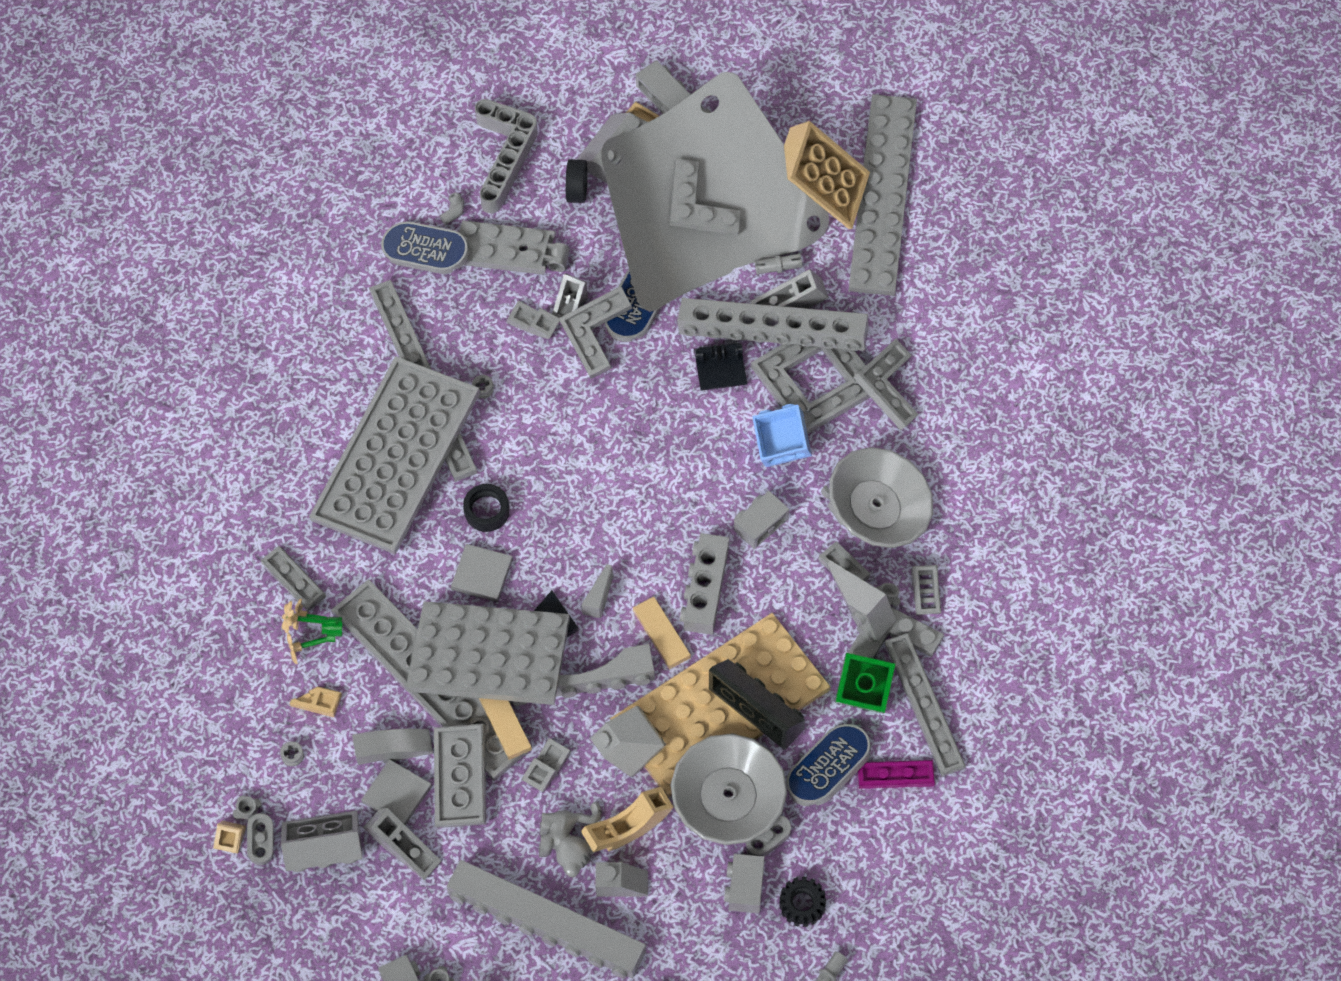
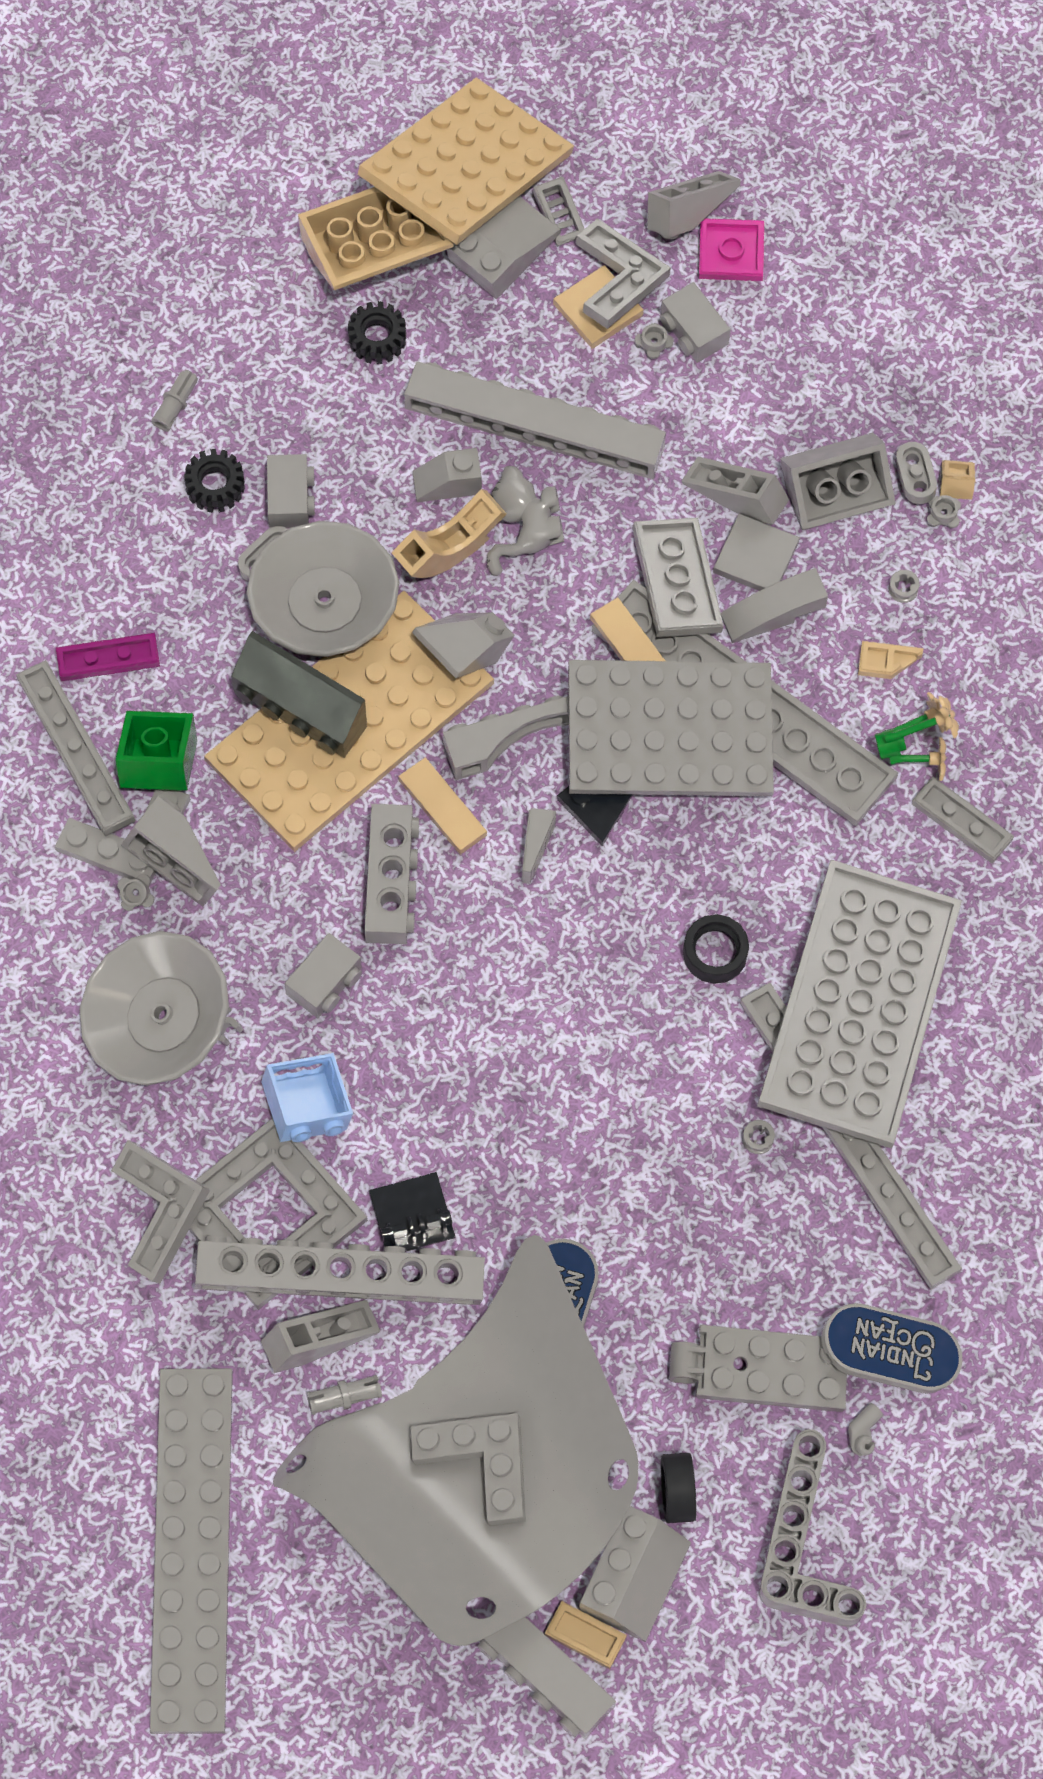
camera: 170 degrees right, 5 degrees up
(481, 572) = (704, 859): light grey tile -> none
(530, 320) = (703, 1255): light grey slope -> none
(547, 765) = (568, 612): light grey slope -> none
(570, 295) = (653, 1288): light grey slope -> none
(581, 321) = (630, 1244): light grey plate -> none
(825, 172) = (285, 1516): tan slope -> none
(828, 765) = (196, 651): tile -> none
(842, 558) = (200, 923): light grey plate -> none
(917, 571) = (88, 930): light grey slope -> none

